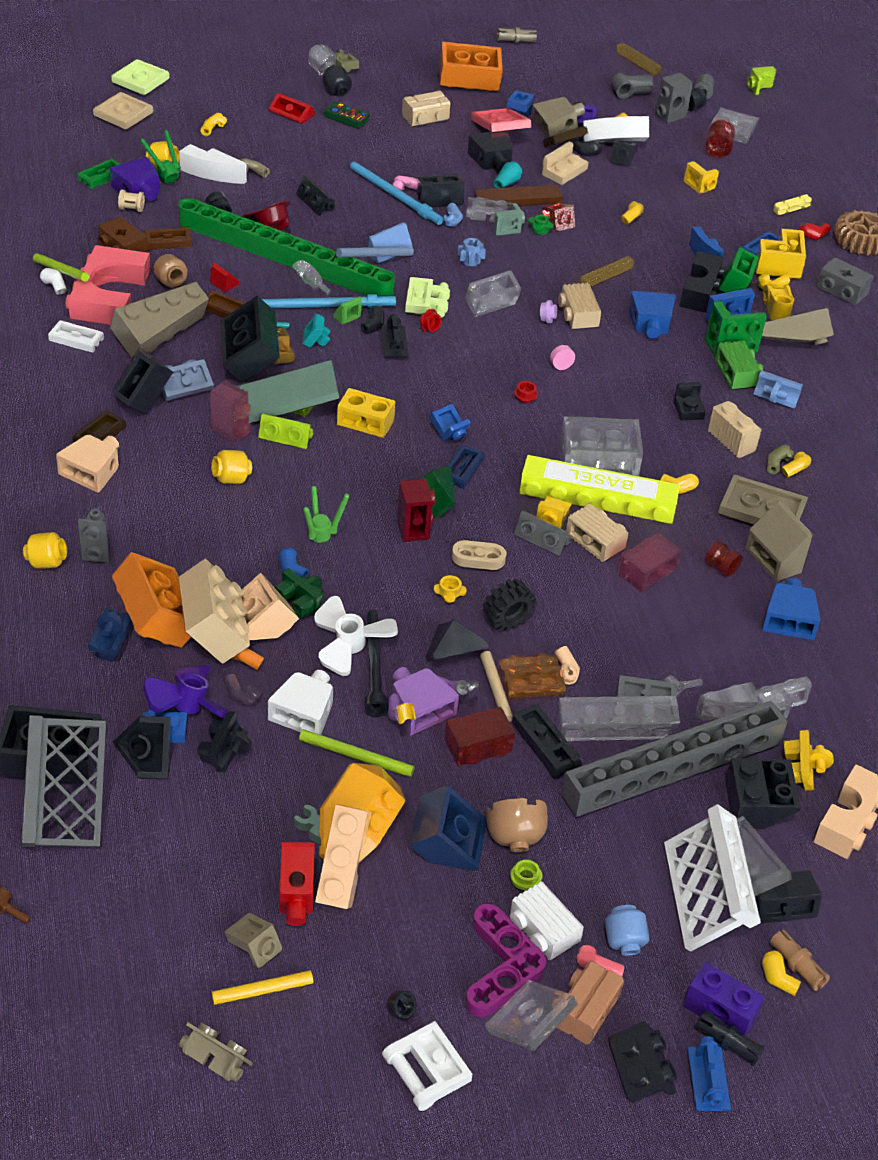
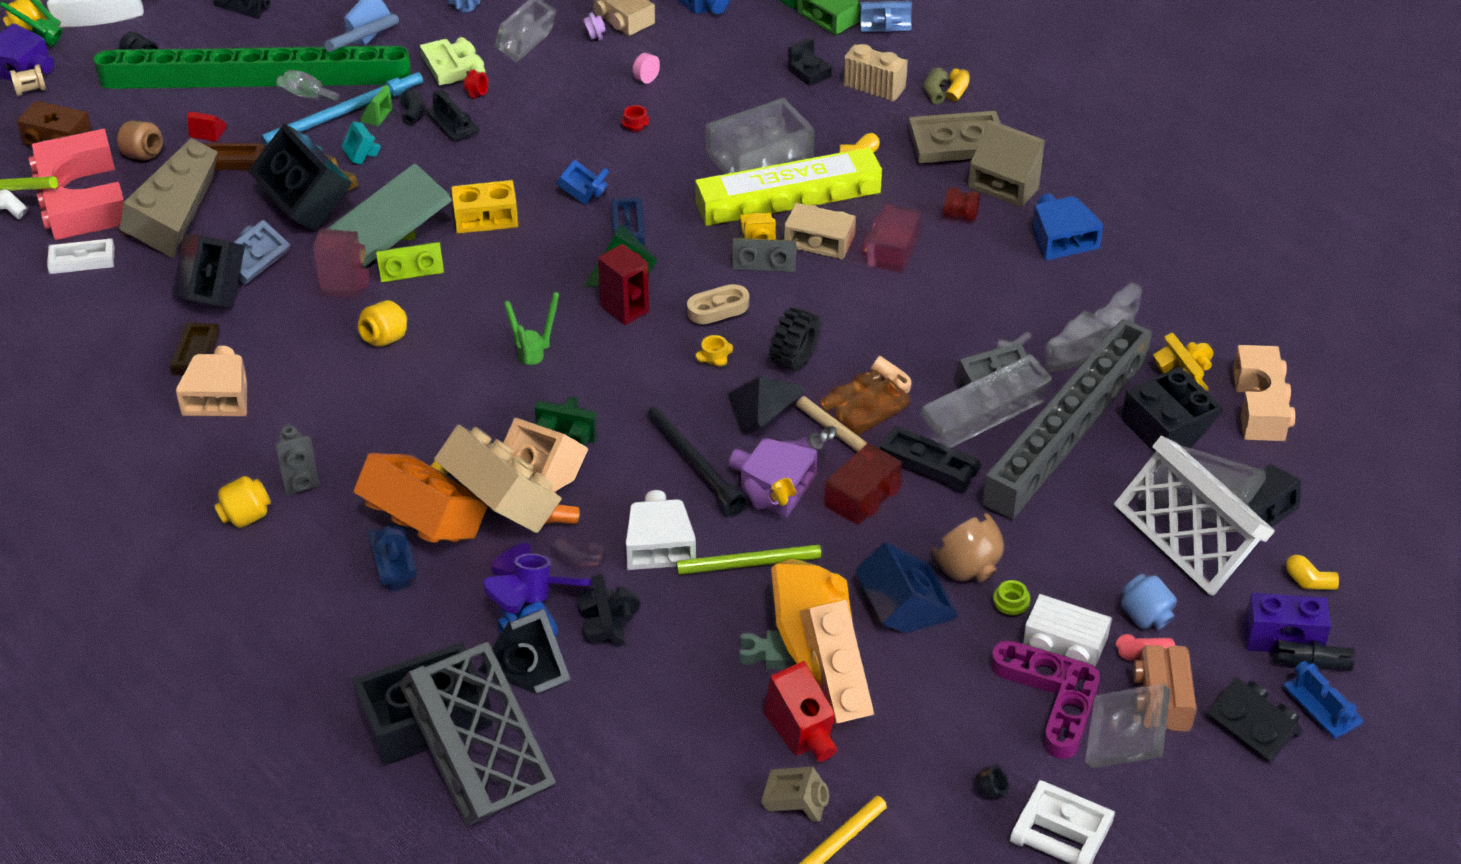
camera: 25 degrees left, 0 degrees up
(168, 238) = (107, 105): reddish brown tile -> none
(272, 216) = (216, 35): dark red piece -> none
(288, 560) = (523, 396): blue arm -> none
(349, 633) = (650, 440): white piece -> none
(799, 960) = (1320, 552): medium nougat pin -> none

